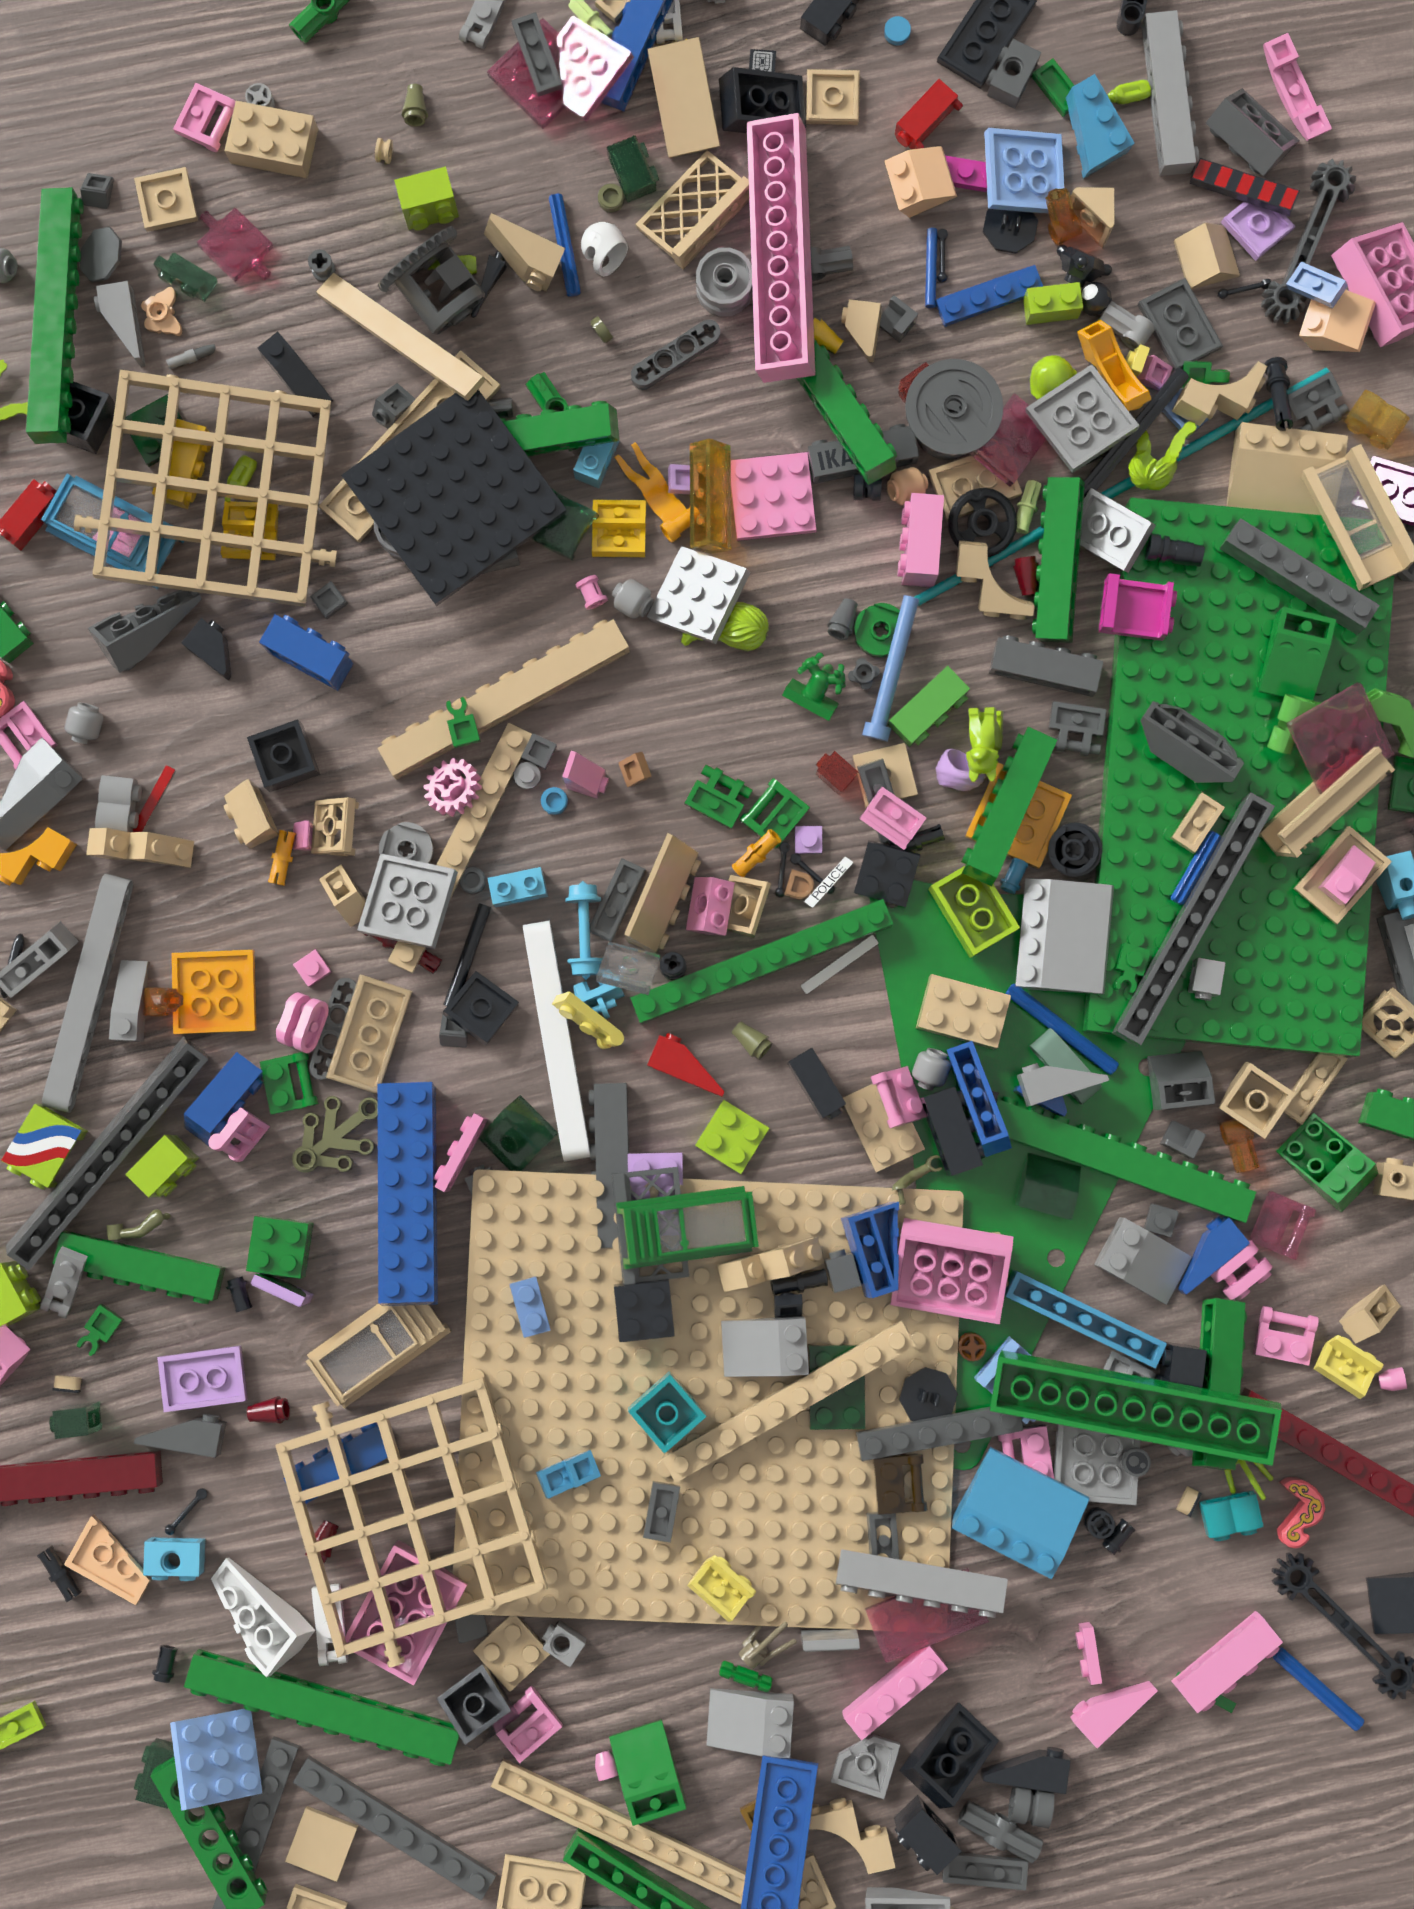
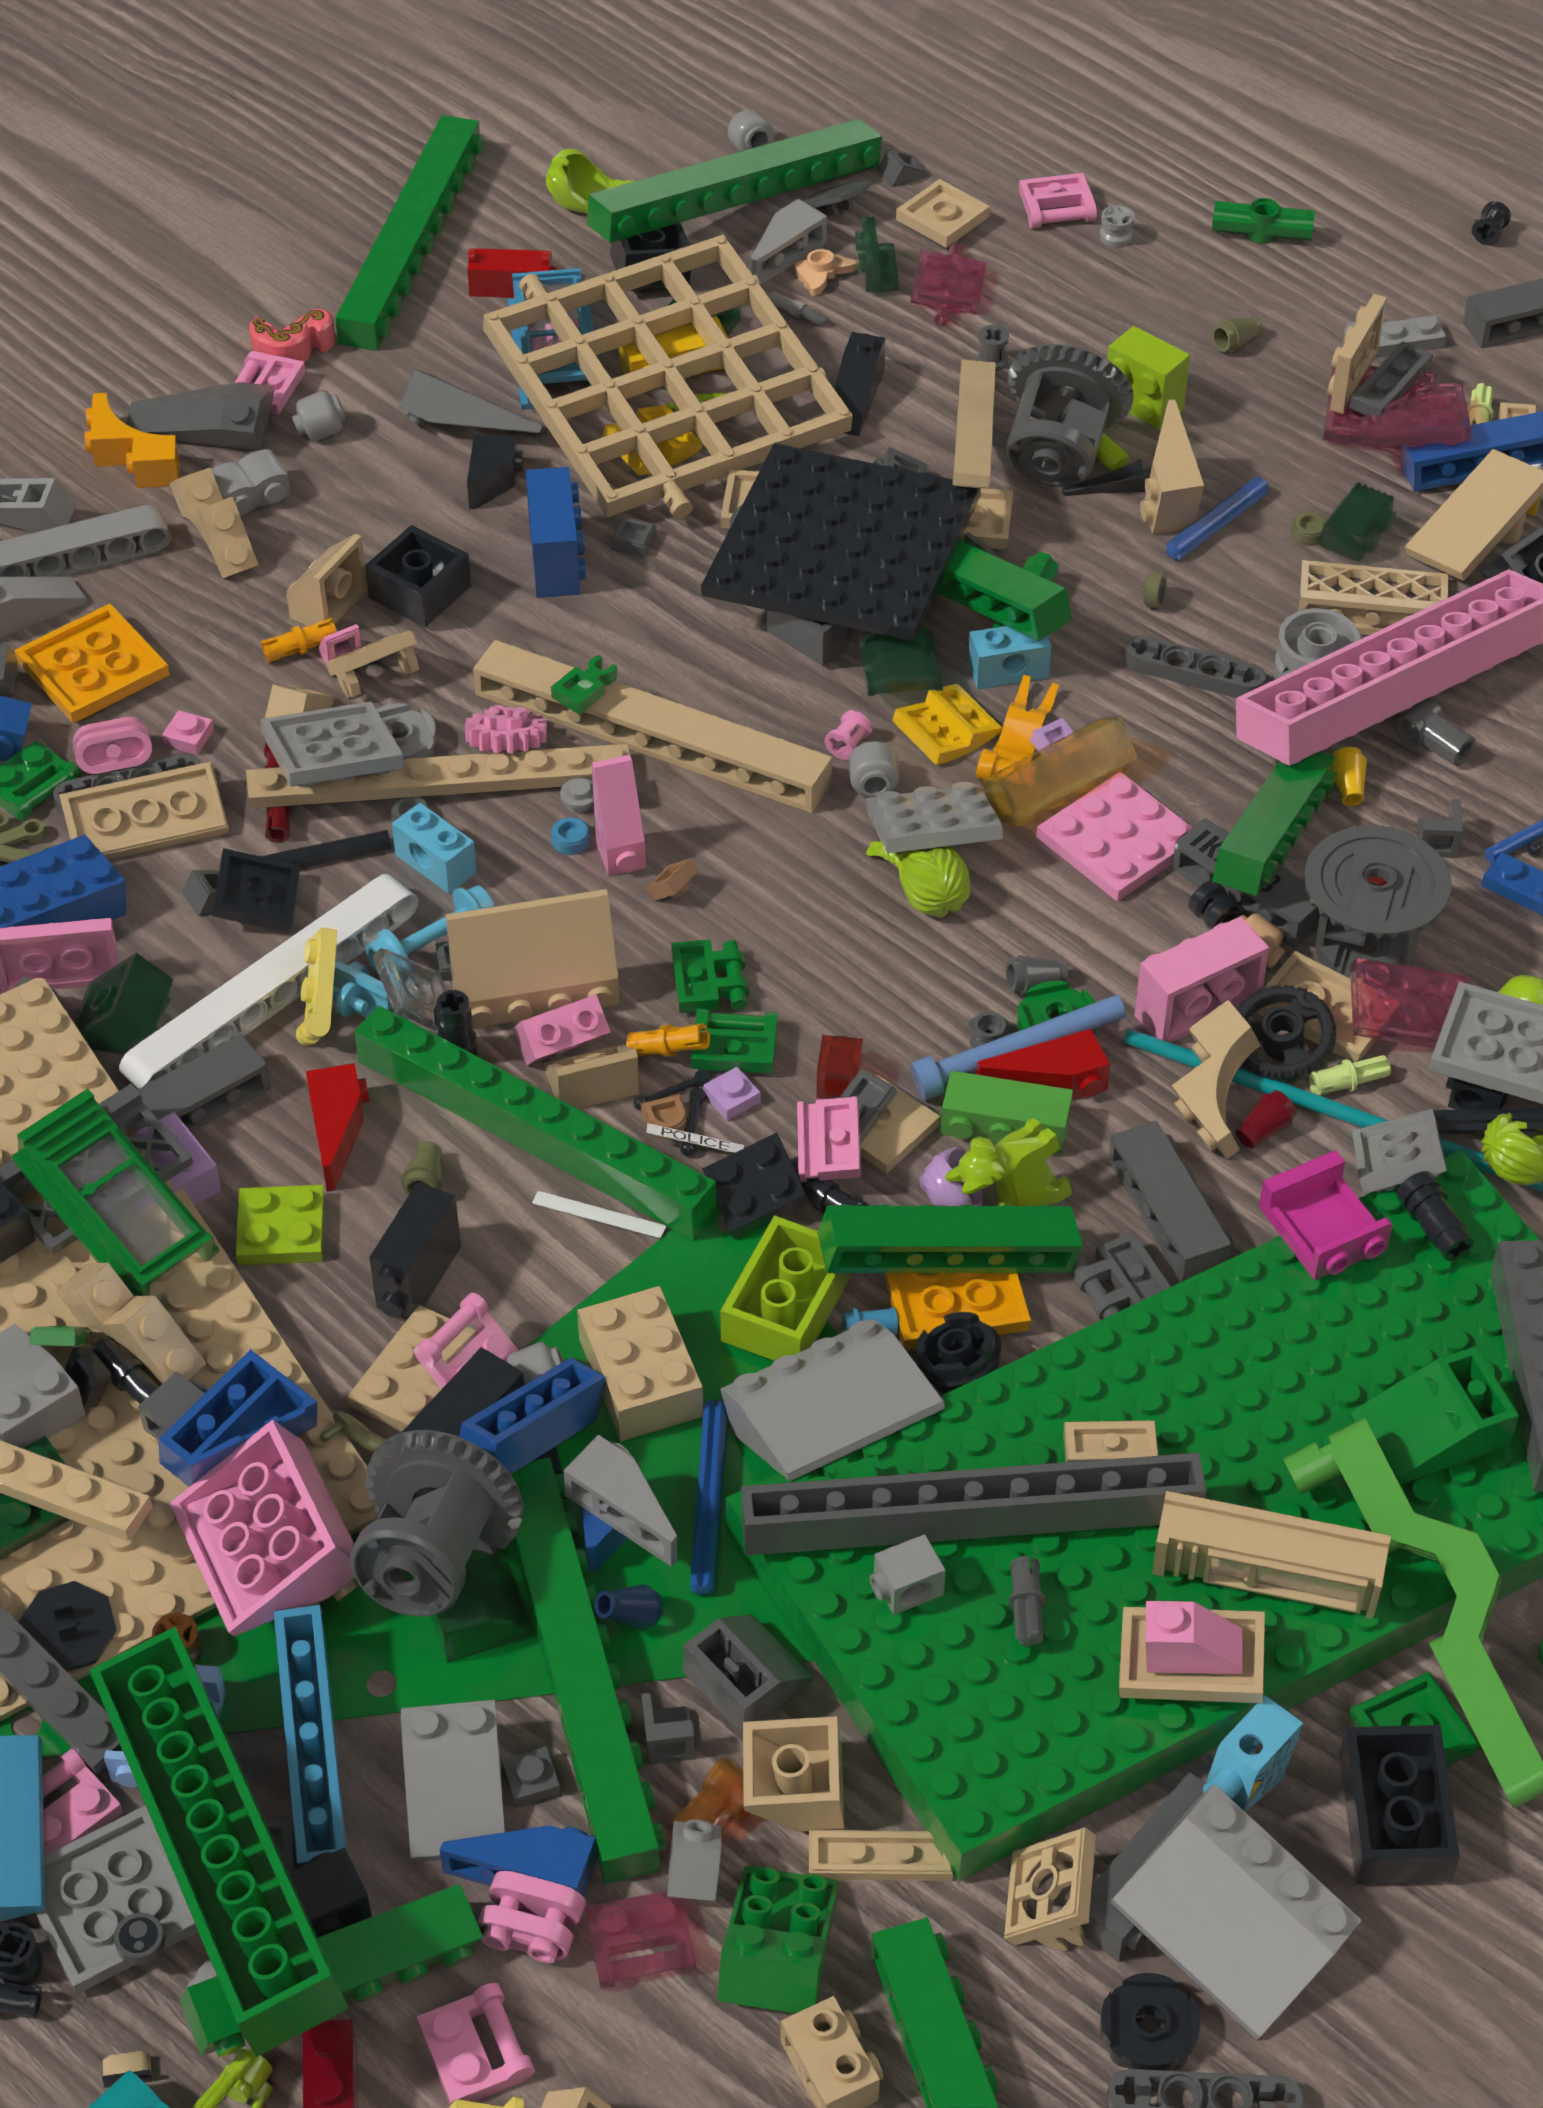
camera: 55 degrees right, 35 degrees down
(154, 798) = (285, 516): red sticker -> none
(161, 1001) = (43, 616): clear orange piece -> none
(271, 139) = (1084, 249): tan brick -> none
(384, 150) = (1166, 330): tan bush -> none
(511, 63) = (1357, 353): none -> tan plate
(601, 241) = (1247, 535): white helmet -> none
(761, 1307) = (60, 1335): none -> green tile
(813, 693) = (915, 987): green piece -> none
(862, 325) = (1402, 798): tan slope -> none
(920, 656) = (1064, 1062): none -> red slope
(1027, 1193) = (433, 1507): none -> dark grey piece
(1056, 1053) = (675, 1493): sand green beam -> none
(1059, 559) = (1313, 1127): green brick -> none
(1108, 1113) = (631, 1606): none -> dark blue cone
(1189, 744) = (1203, 1358): dark grey wedge -> none
(1257, 930) = (1027, 1601): none -> dark grey axle
(1269, 1177) = (694, 1860): none -> light grey brick
(1338, 735) = (1382, 1496): clear pink plate -> none

